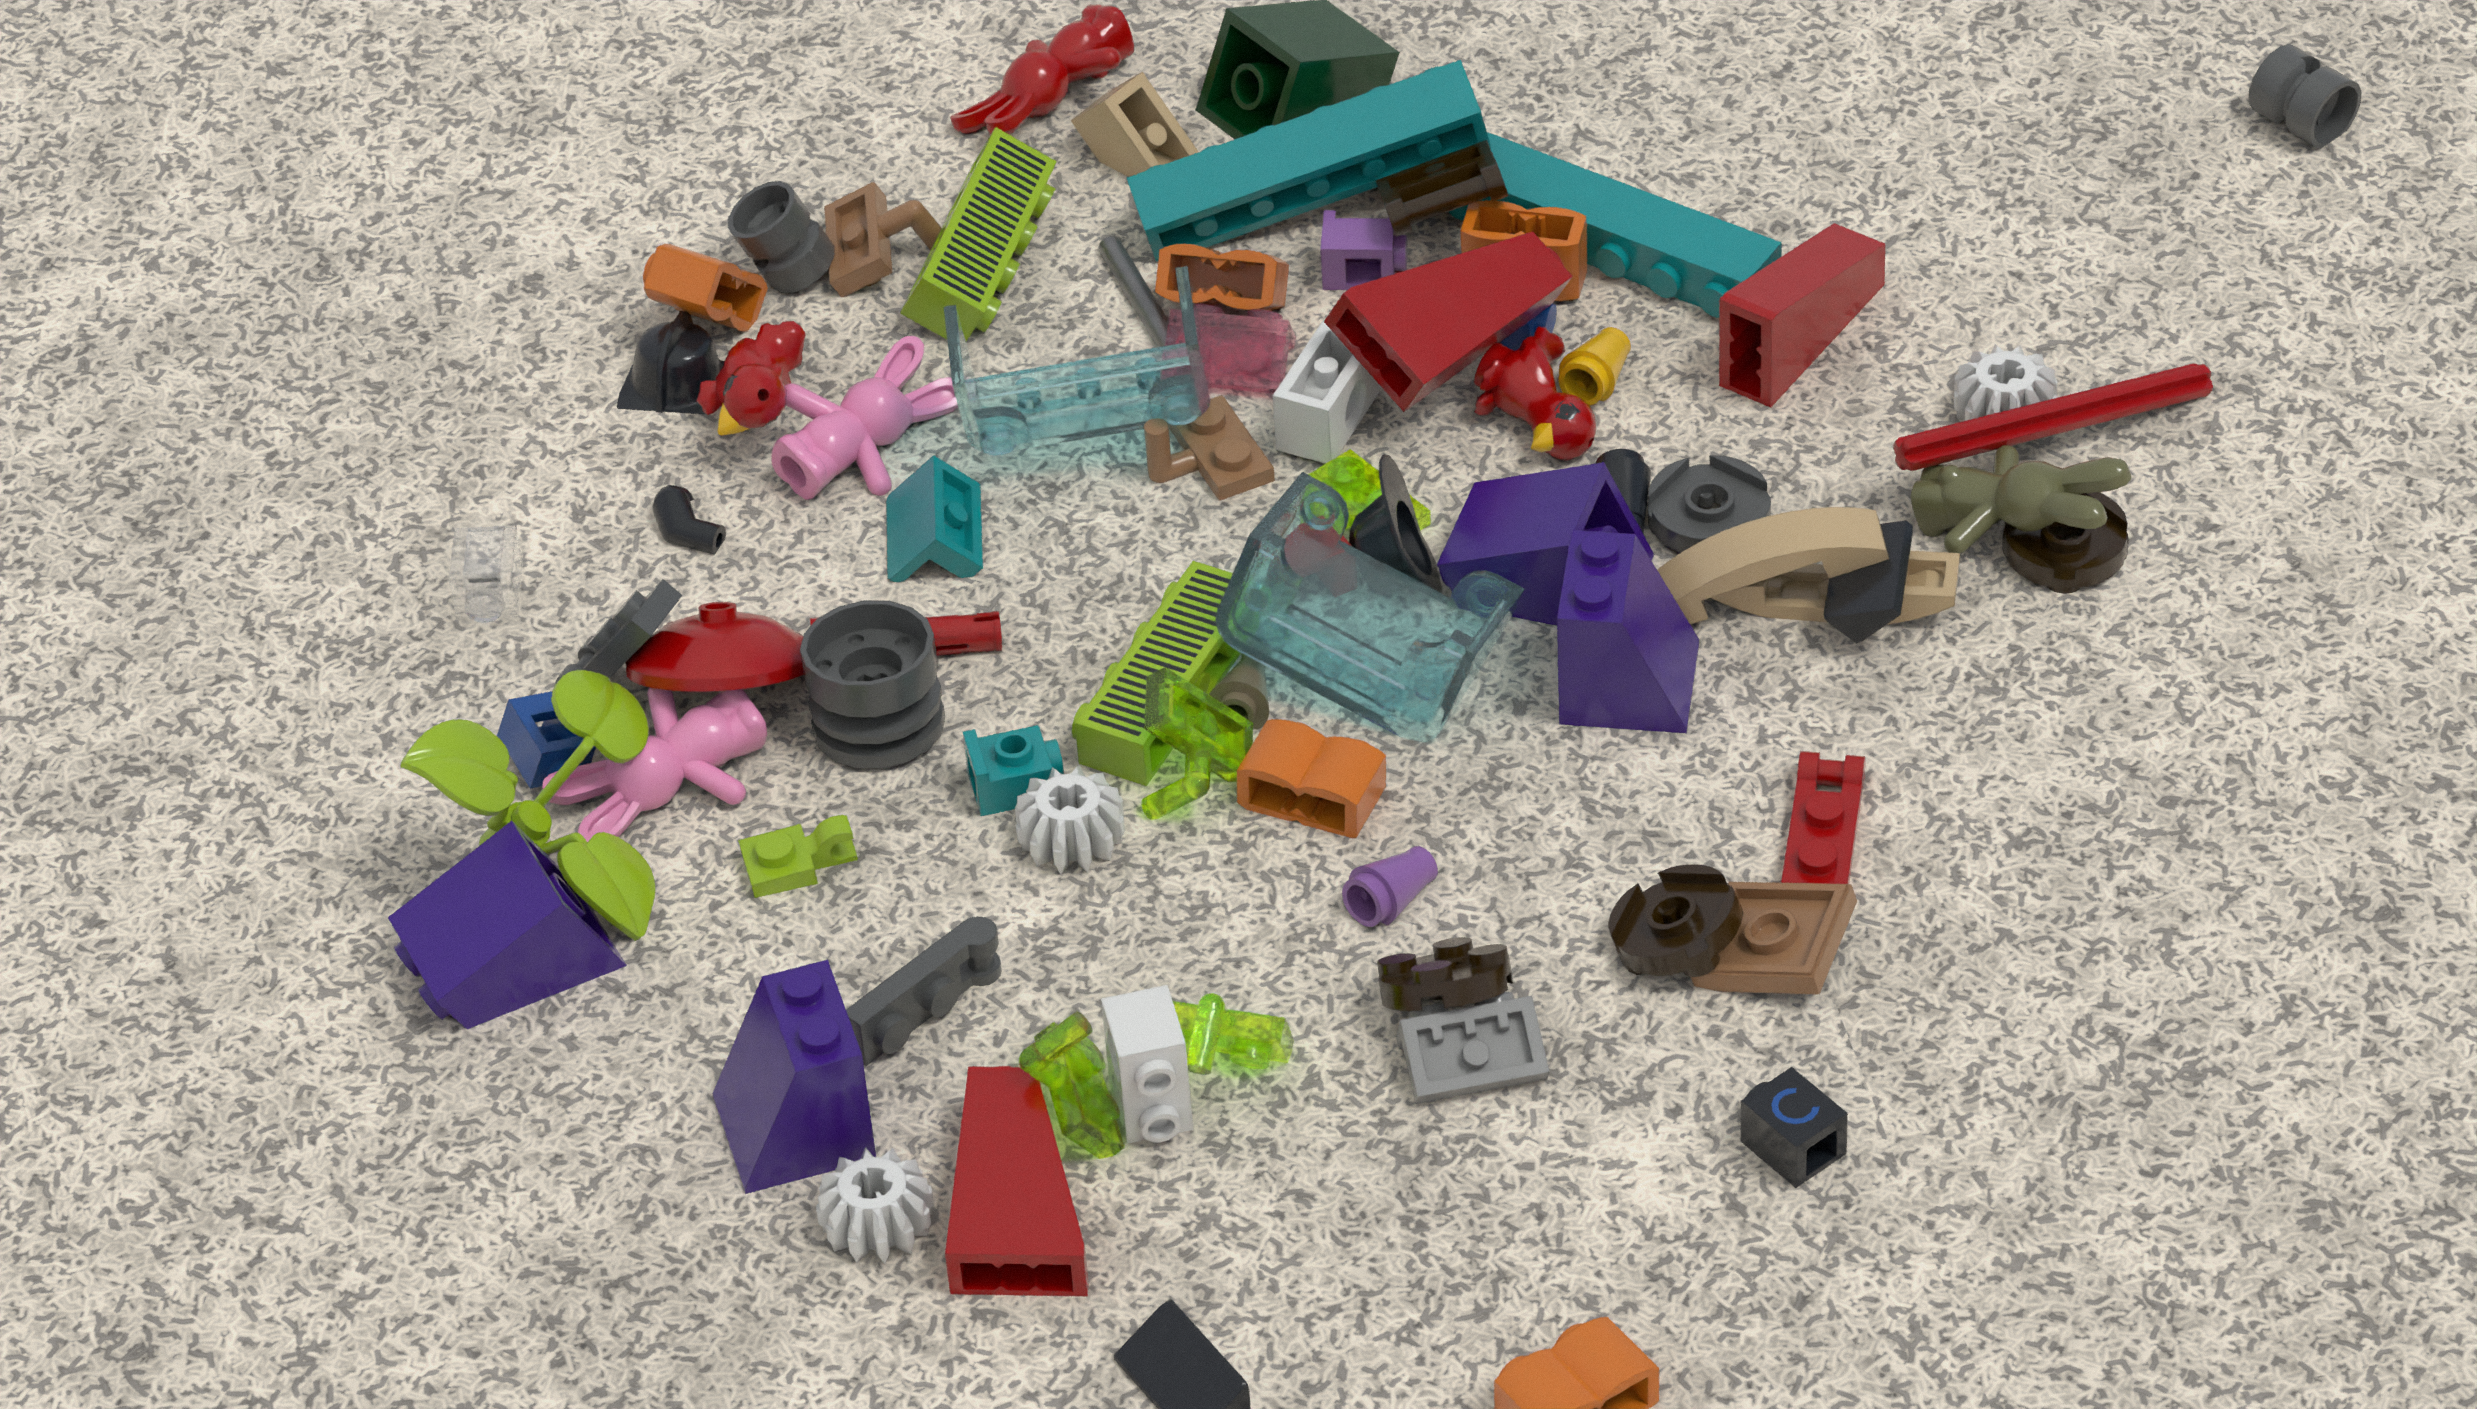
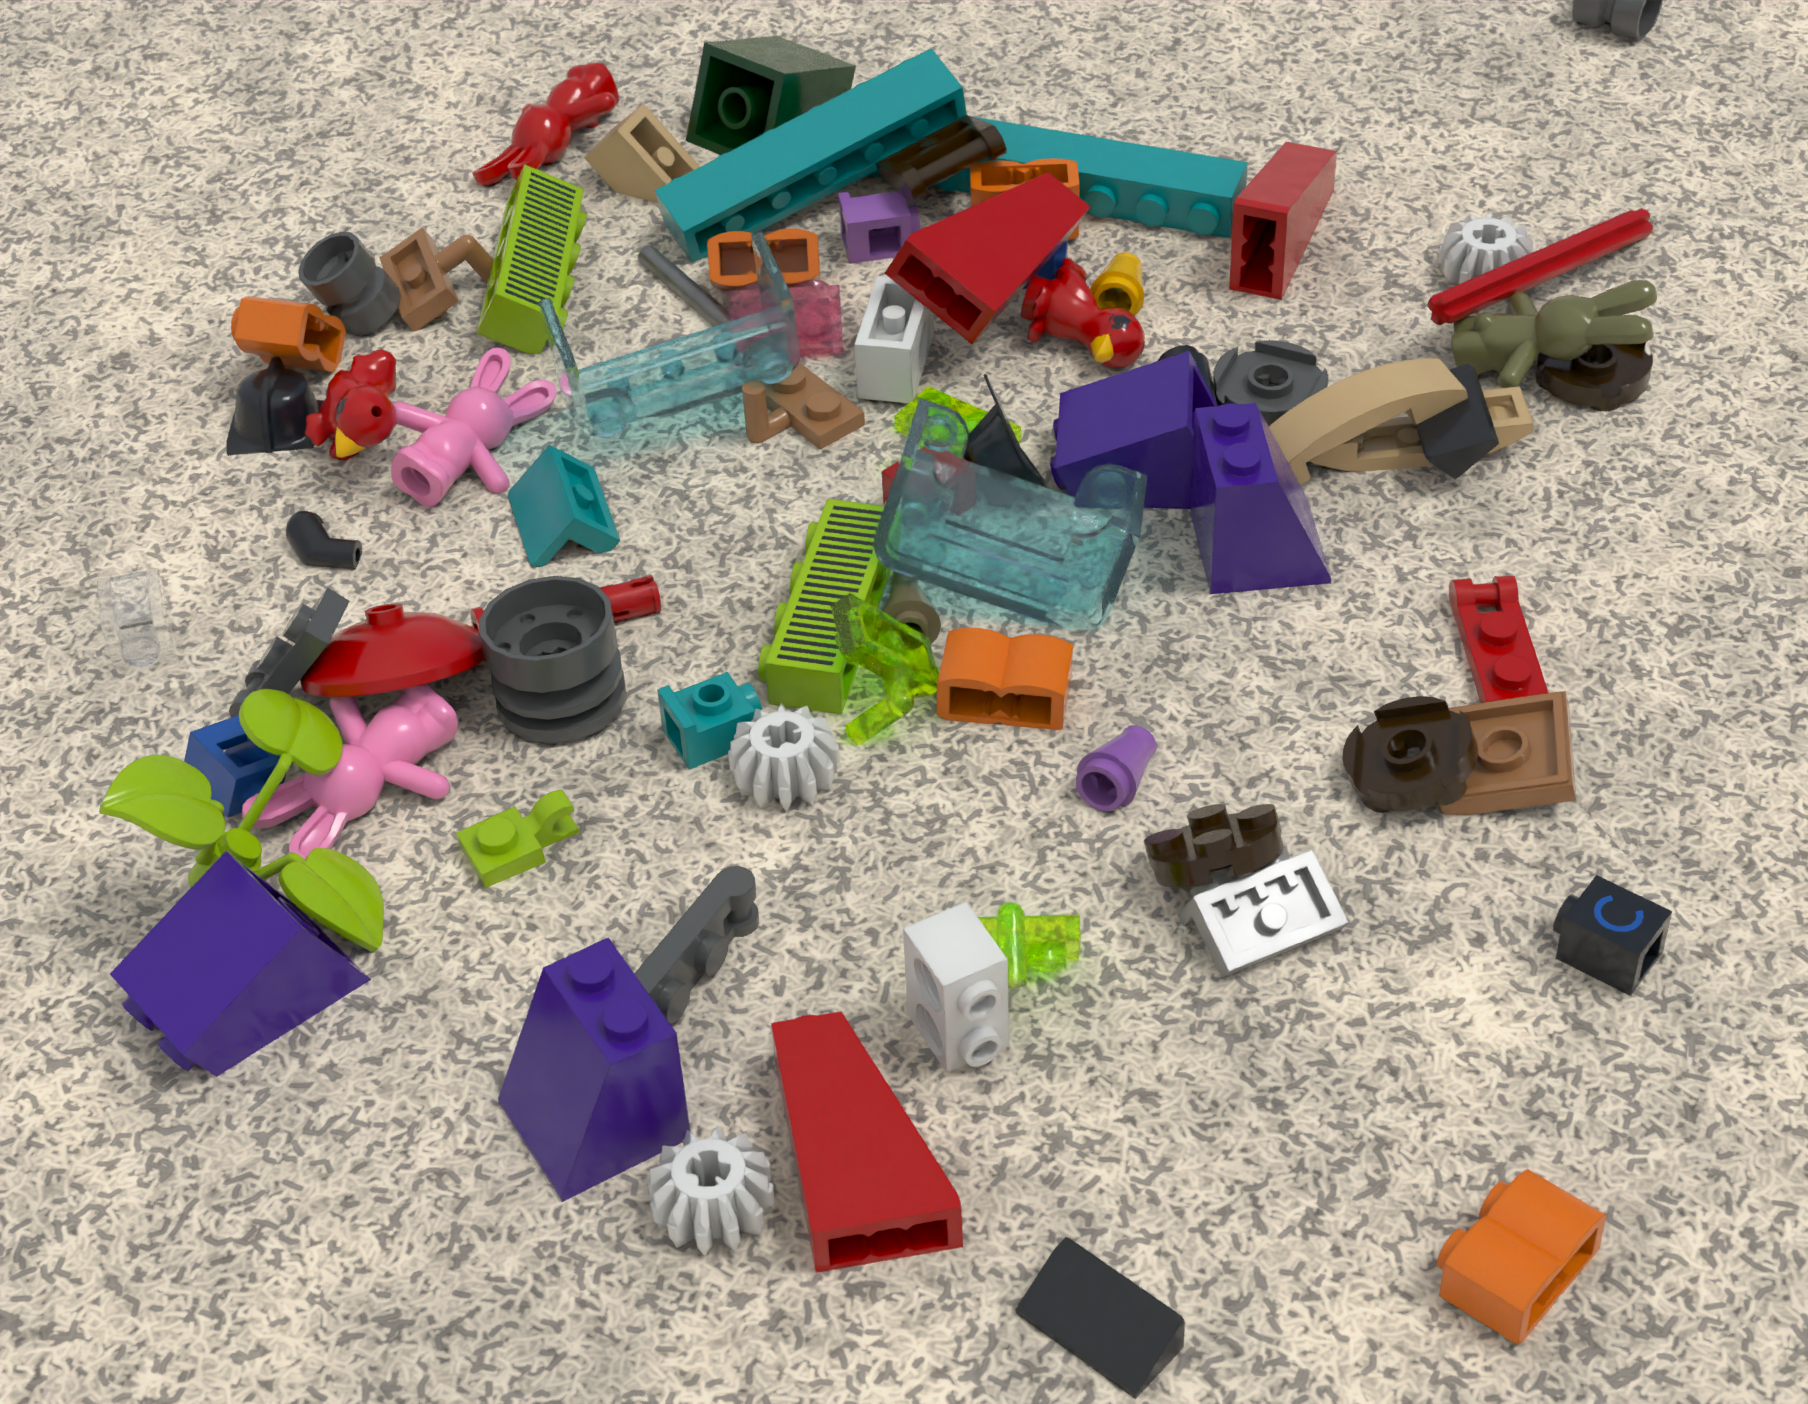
camera: 15 degrees left, 0 degrees up
(1073, 1073) = (871, 1004): clear neon green plate -> none

